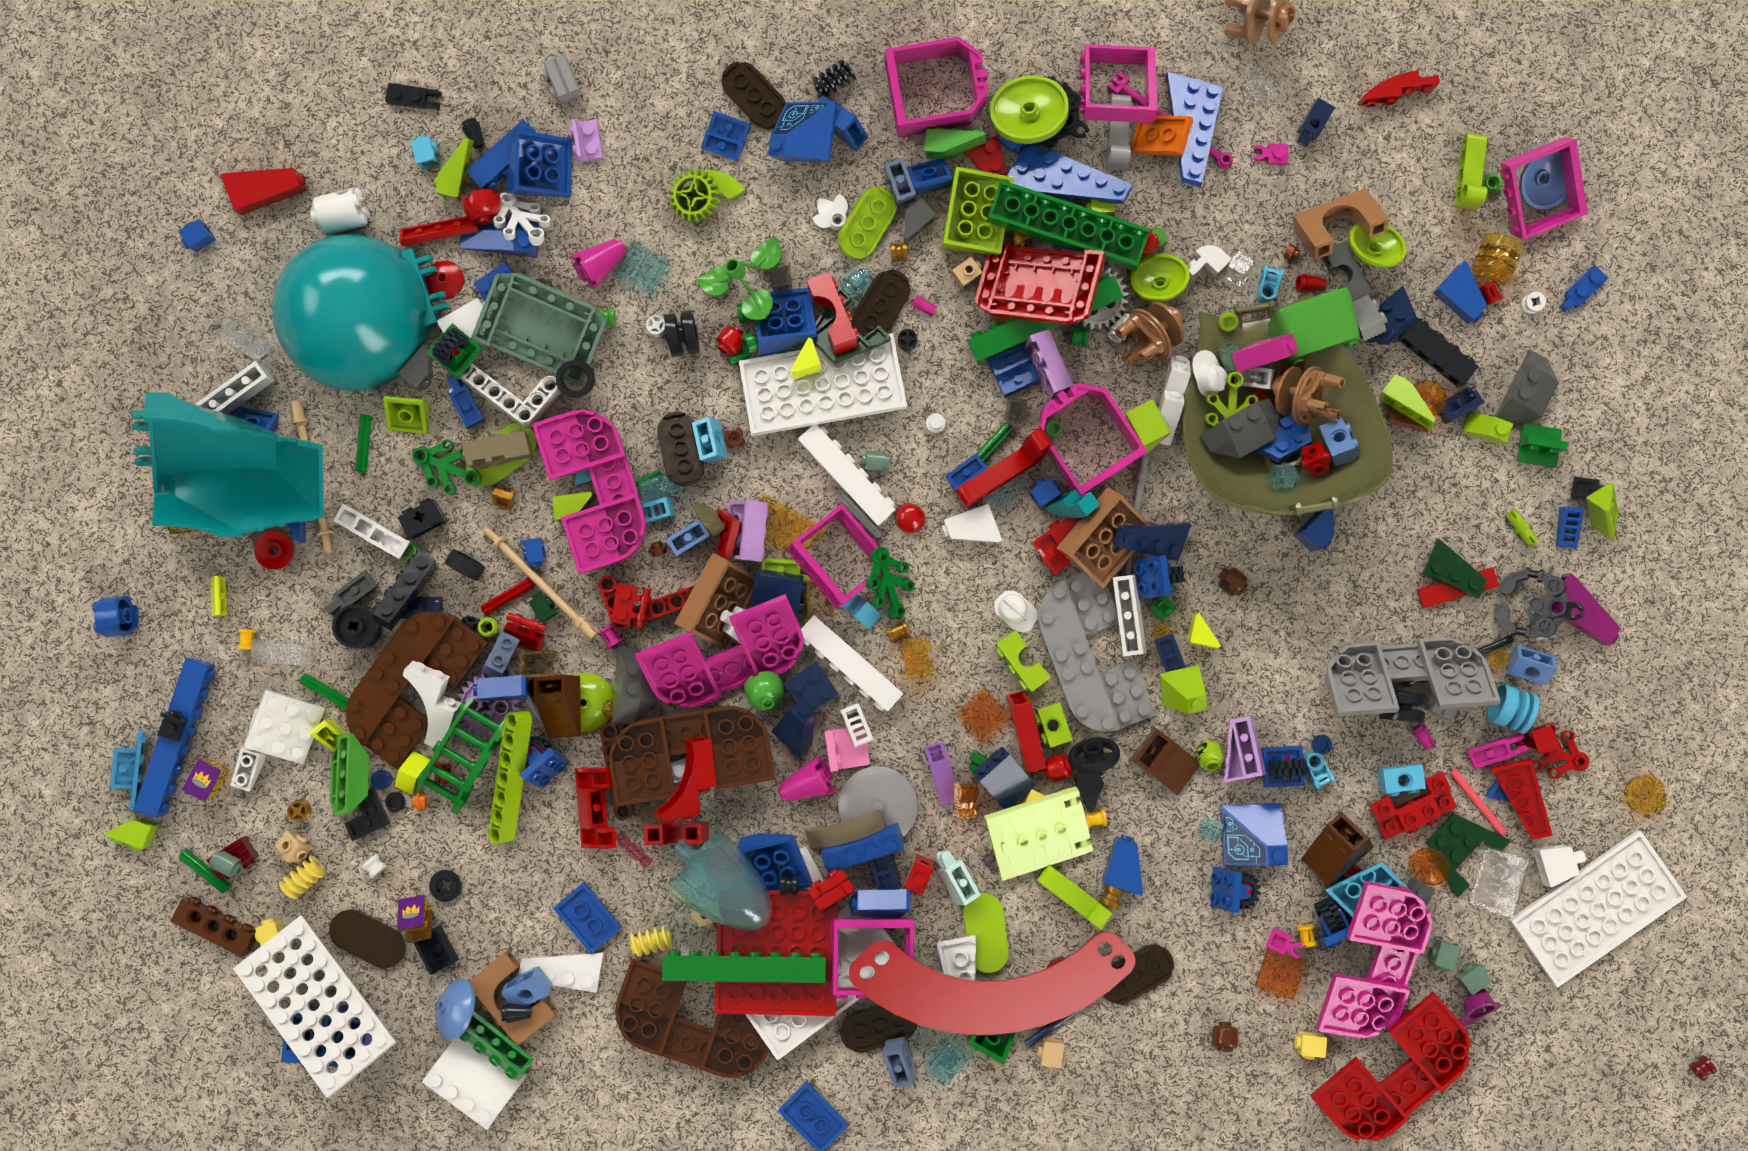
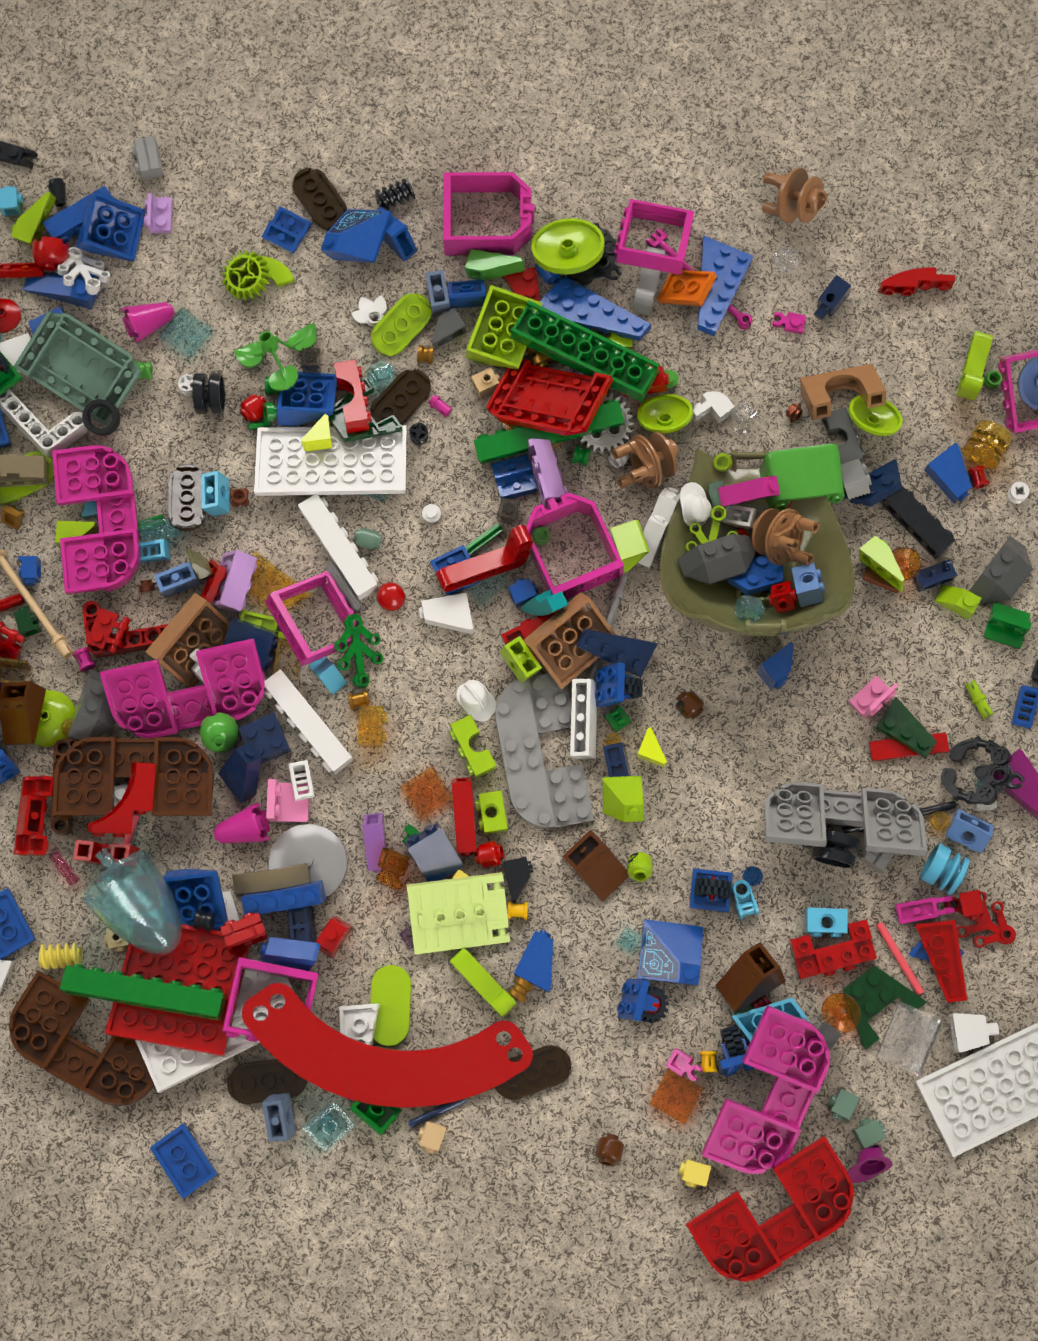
camera: 15 degrees right, 10 degrees down
(956, 878) = (369, 944): light aqua hinge -> none
(1057, 567) = (520, 659): none -> lime brick
(1094, 757) = (523, 846): black wheel -> none
(1244, 751) = (673, 867): lavender wedge -> none
(1270, 281) = (768, 434): medium azure piece -> none
(1309, 283) = (805, 440): red cone -> none
(1417, 543) = (870, 698): none -> bright pink bracket
(1423, 736) = (854, 884): dark pink pin -> none

